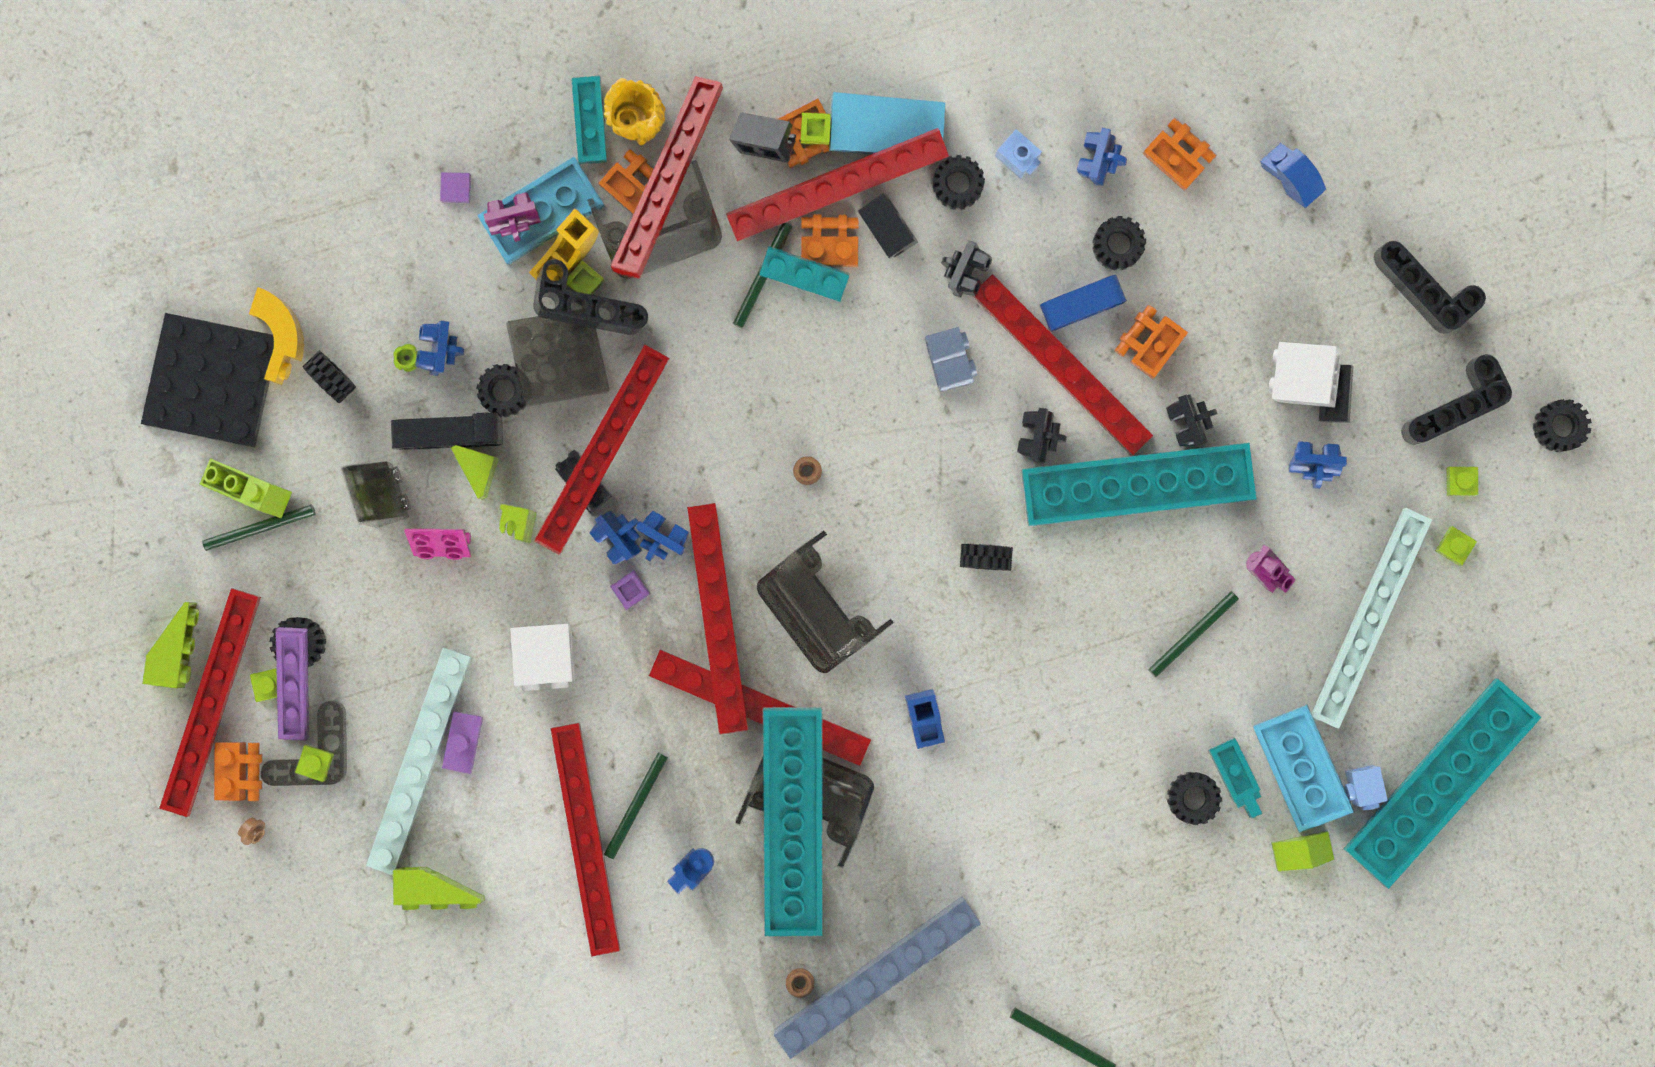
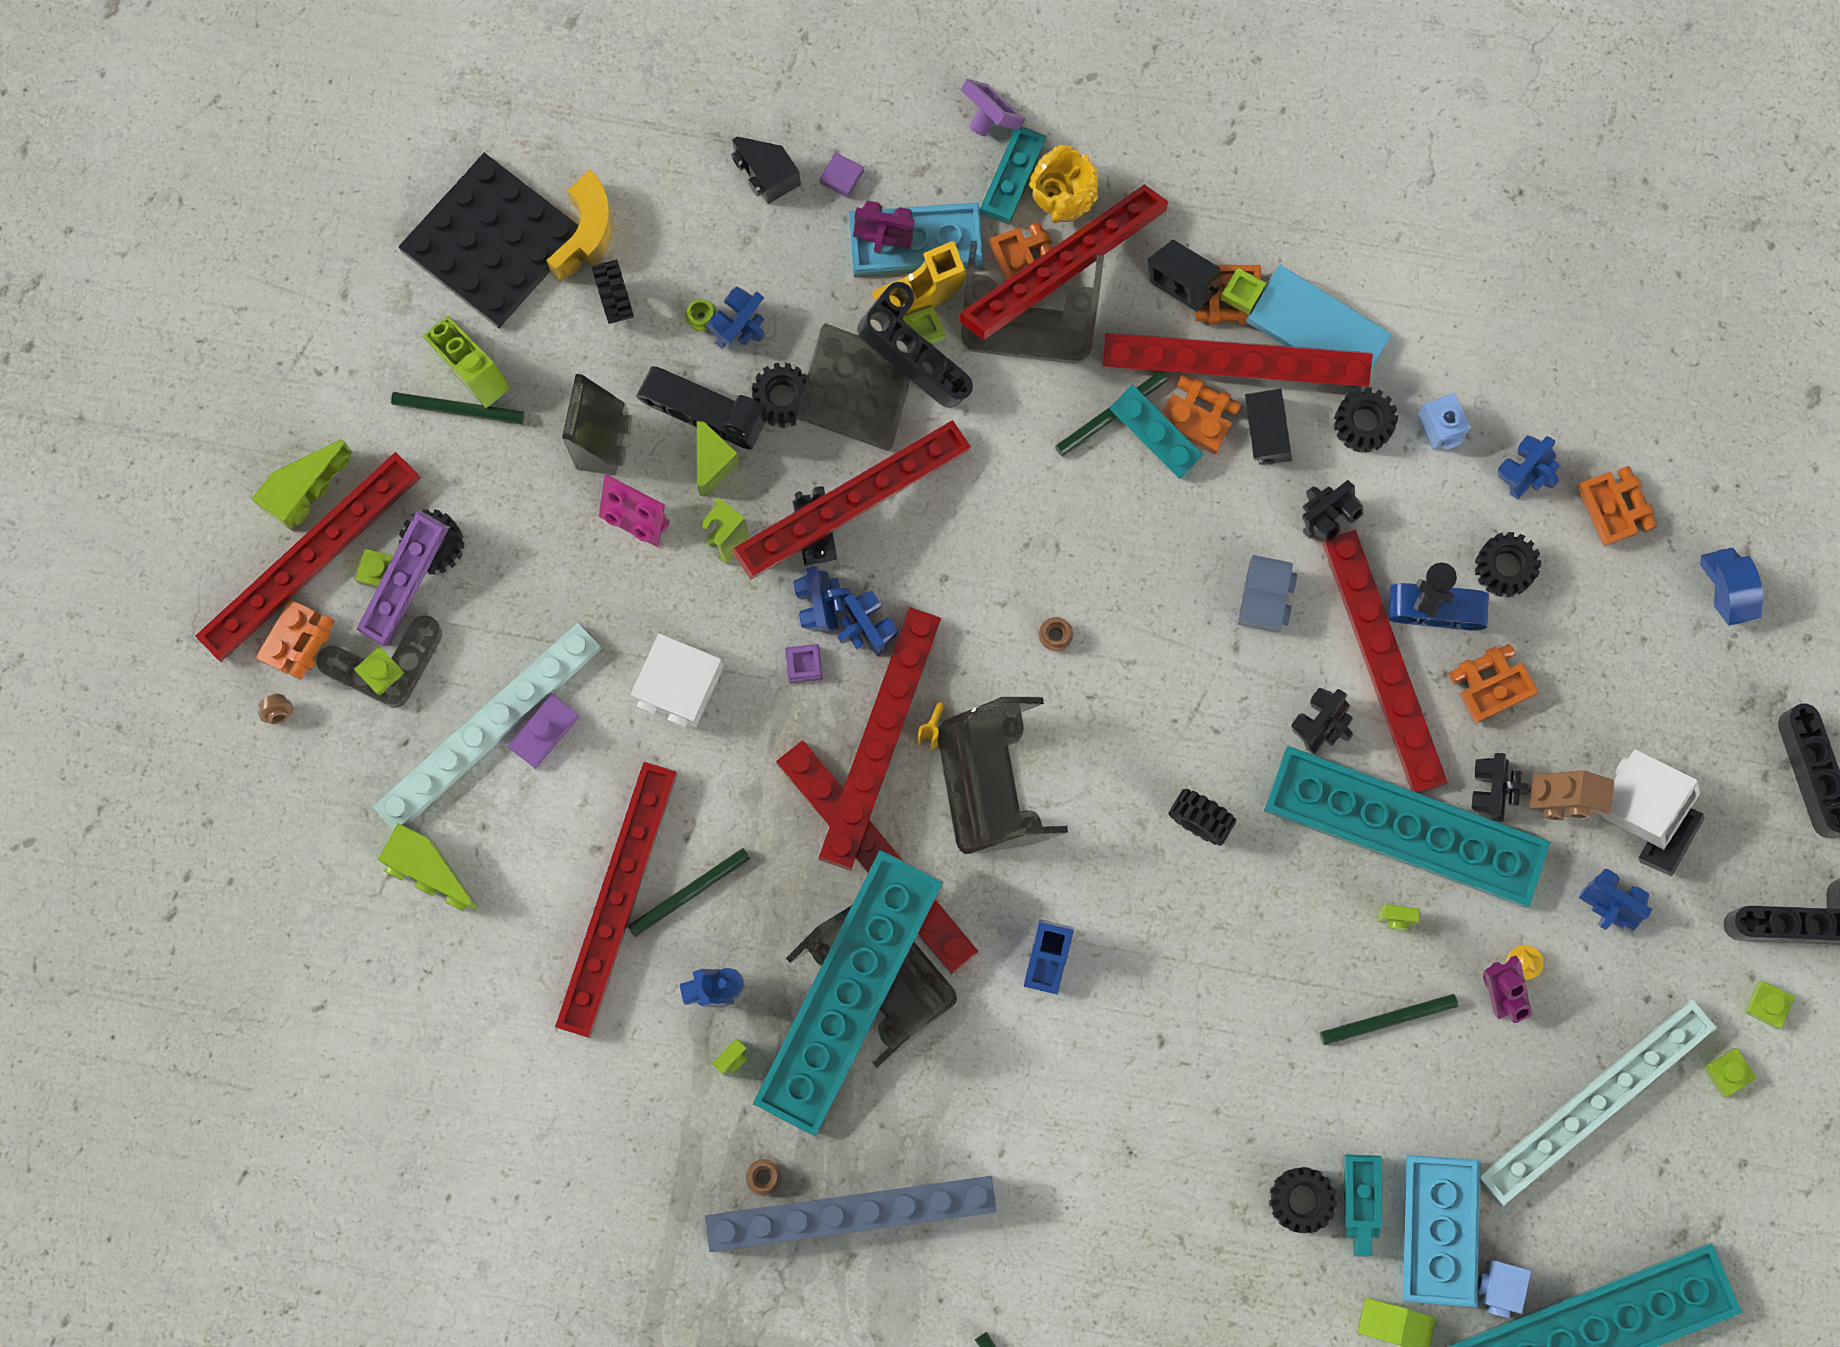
camera: 30 degrees right, 10 degrees down
(394, 211) = (768, 166): none -> black slope
(545, 74) = (991, 108): none -> medium lavender tile
(732, 911) = (732, 1058): none -> lime plate
(751, 592) = (930, 730): none -> yellow hand
(1075, 298) = (1439, 580): none -> black hips
(1165, 556) = (1398, 917): none -> lime plate
(1249, 401) = (1571, 794): none -> medium nougat brick
(1272, 538) = (1530, 959): none -> yellow tile

